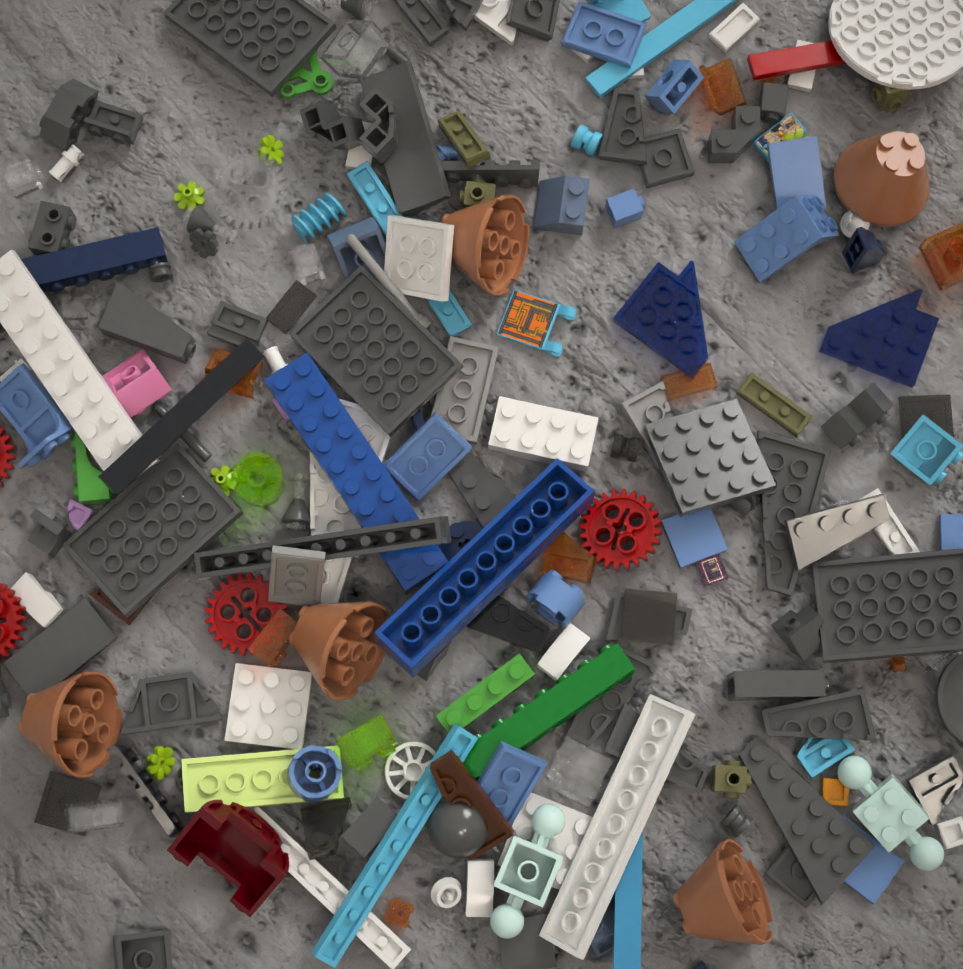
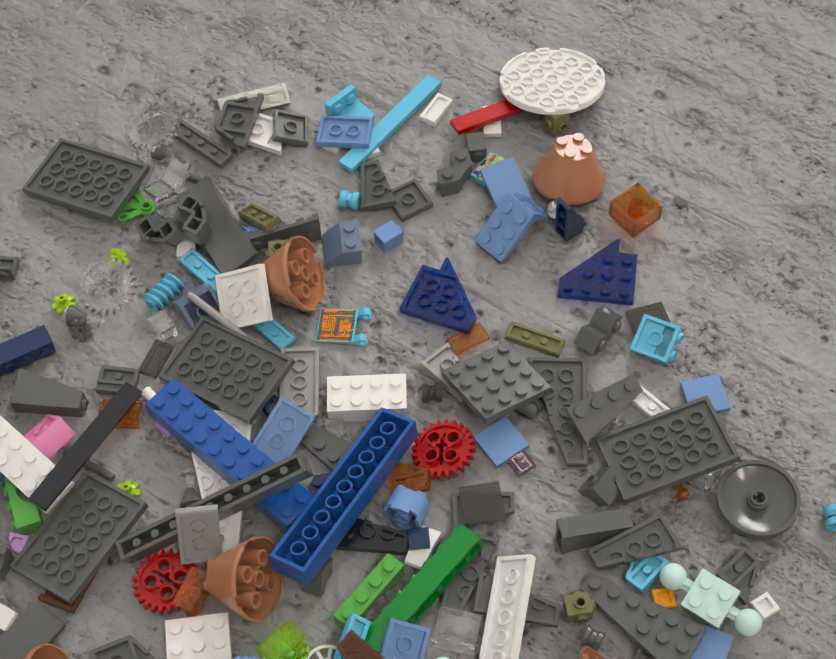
camera: 10 degrees left, 20 degrees down
(160, 272) = (51, 357): dark grey bush -> none
(248, 469) = (155, 480): clear neon green brick -> none
(561, 642) = (419, 538): none -> dark blue tile
(674, 86) = (403, 151): medium blue brick -> none
(722, 87) = (437, 145): clear orange bracket -> none

